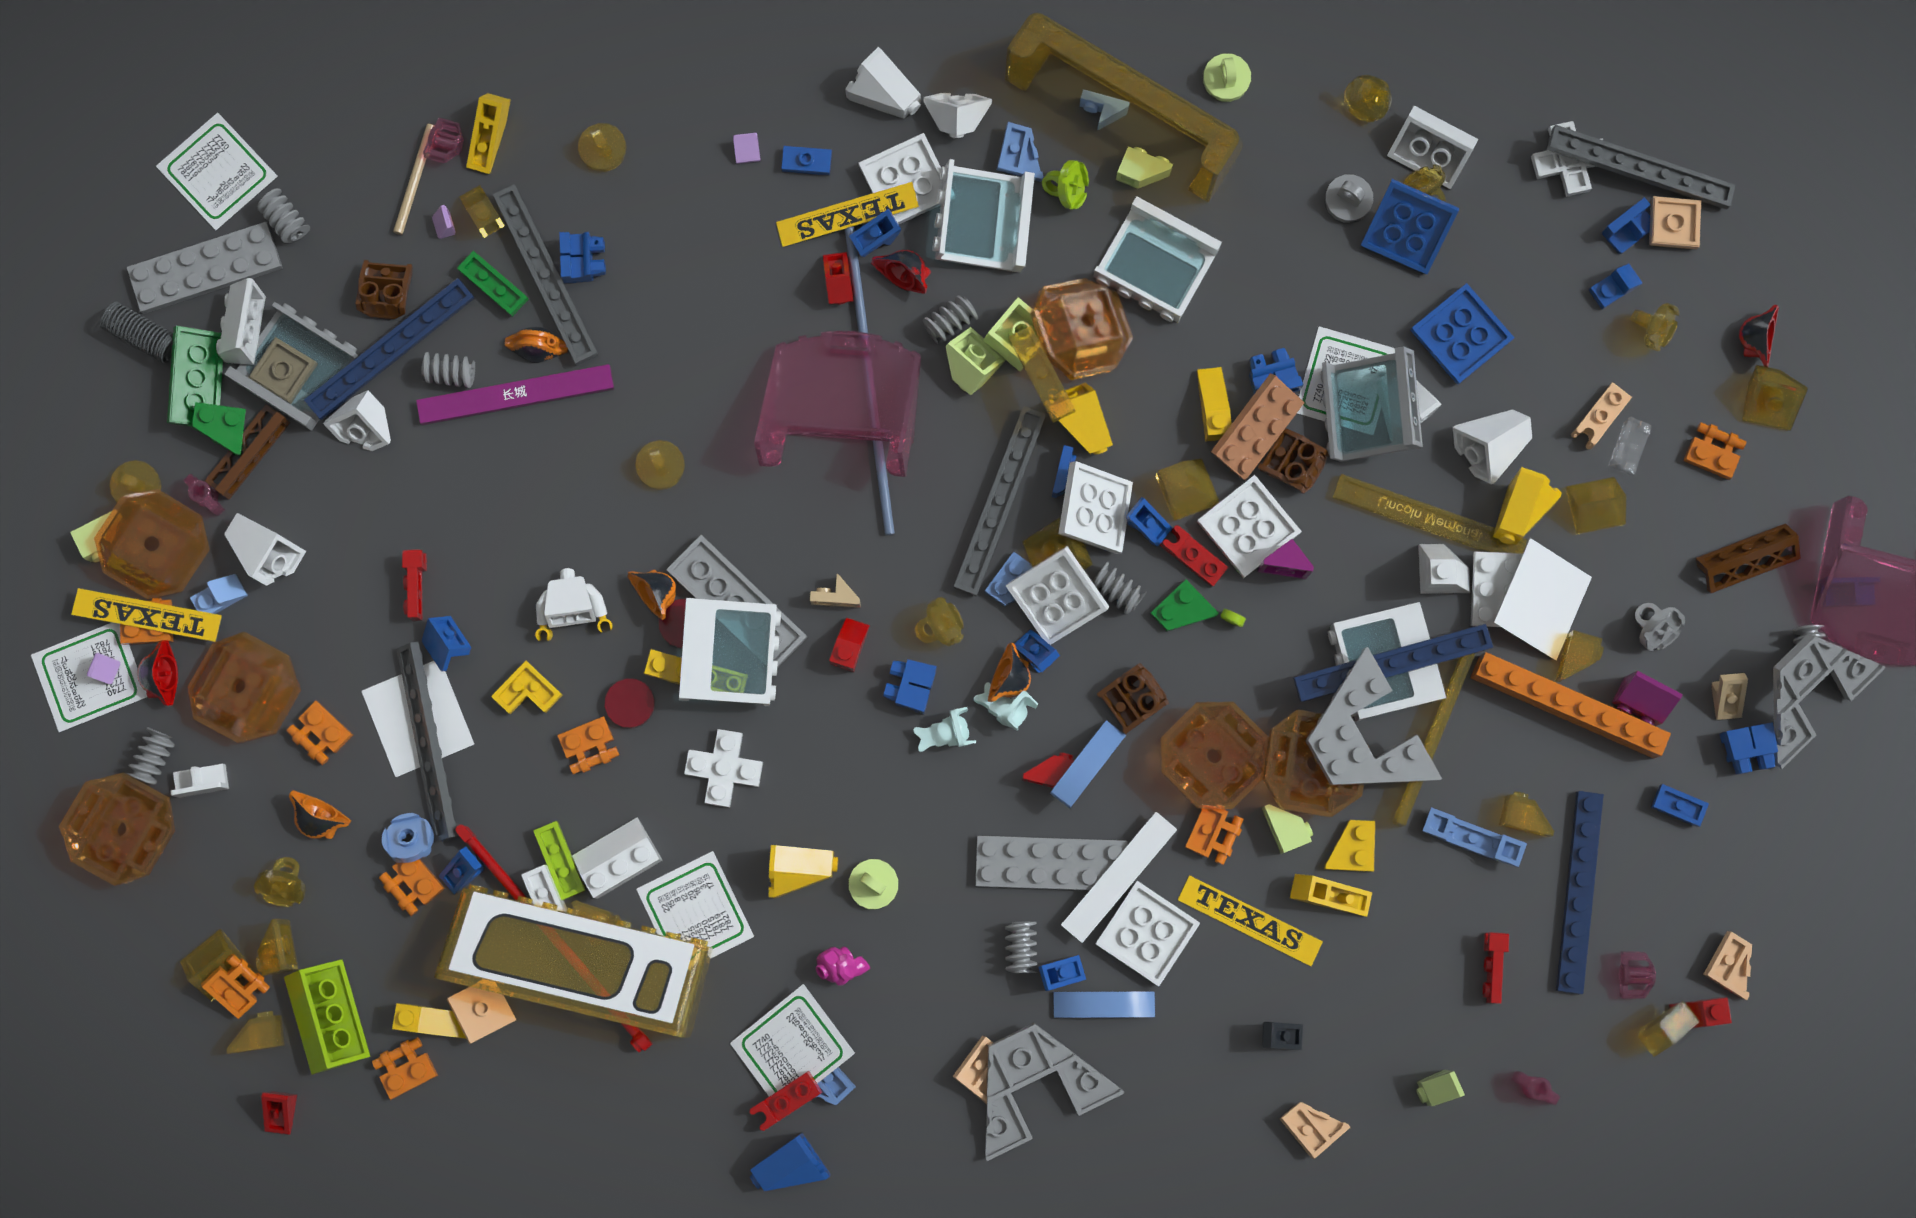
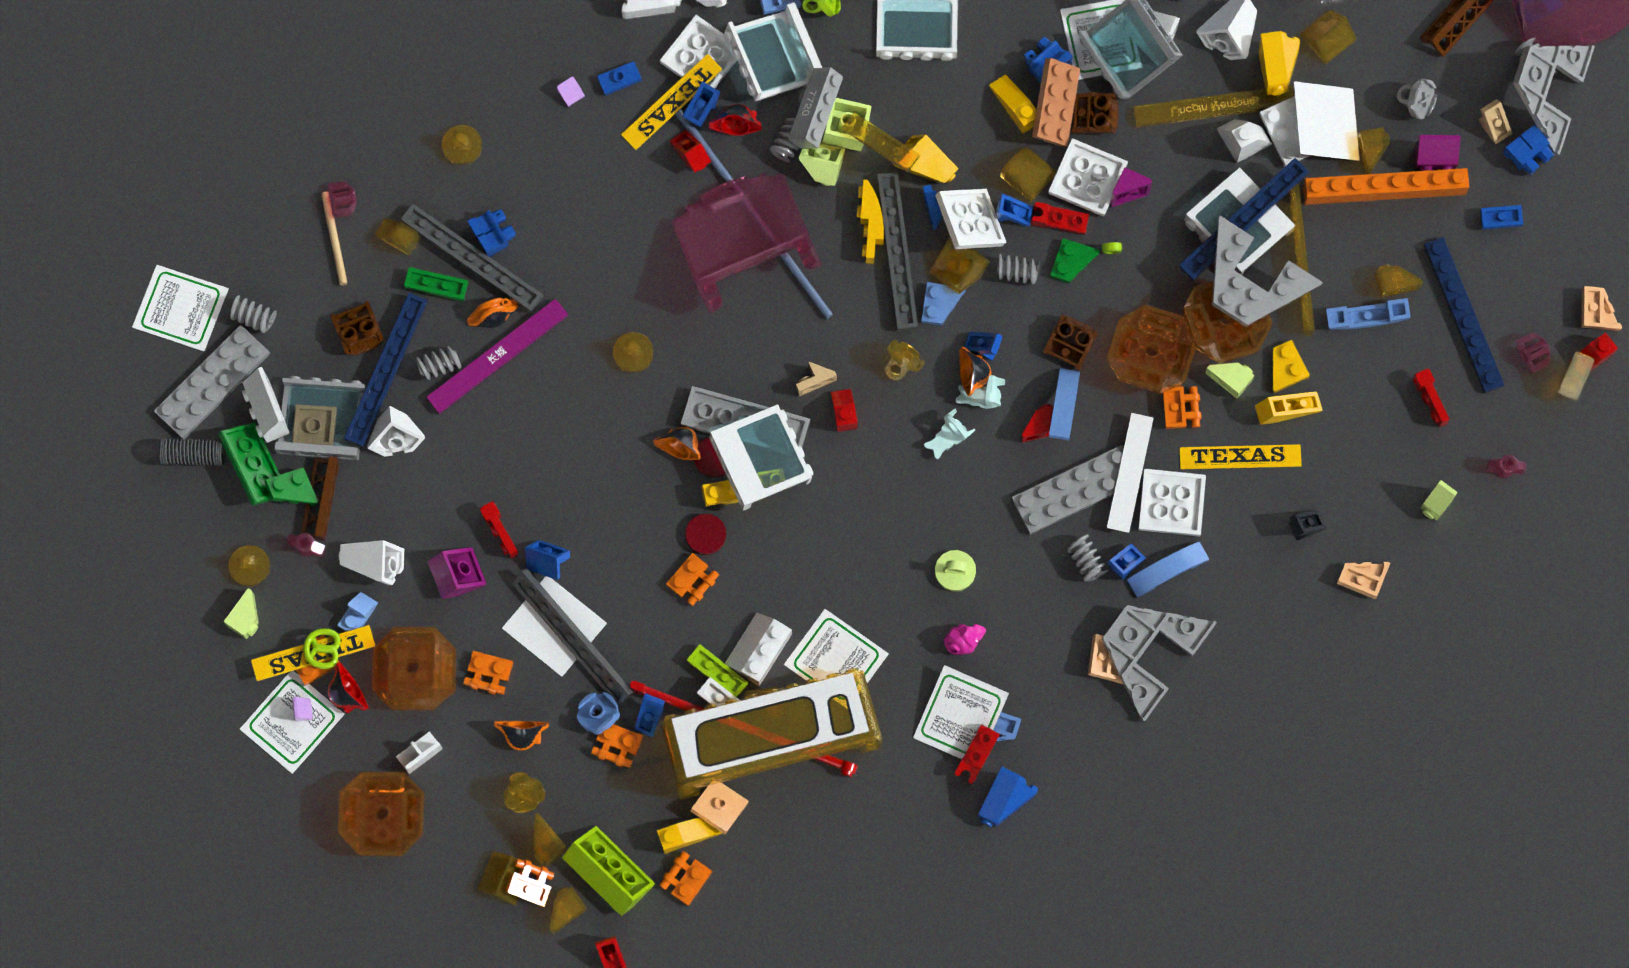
camera: 25 degrees left, 5 degrees down
(147, 515) = (273, 614): clear orange piece -> none
(151, 756) = (372, 749): light grey piece -> none
(156, 615) = (332, 649): none -> lime piece
(344, 606) = (456, 572): none -> magenta slope
(443, 222) = (374, 259): lavender slope -> none
(487, 132) = (371, 177): yellow slope -> none
(526, 683) = (621, 559): yellow plate -> none
(569, 603) = (623, 483): white torso -> none
(723, 768) = (800, 545): white plate -> none
(798, 868) = (895, 585): slope -> none
(909, 695) = (908, 414): blue hips -> none
(992, 300) = (815, 108): none -> light grey brick
(992, 445) = (872, 217): none -> yellow slope
(1057, 596) = (977, 295): white plate -> none
(1068, 343) = (889, 96): clear orange piece -> none

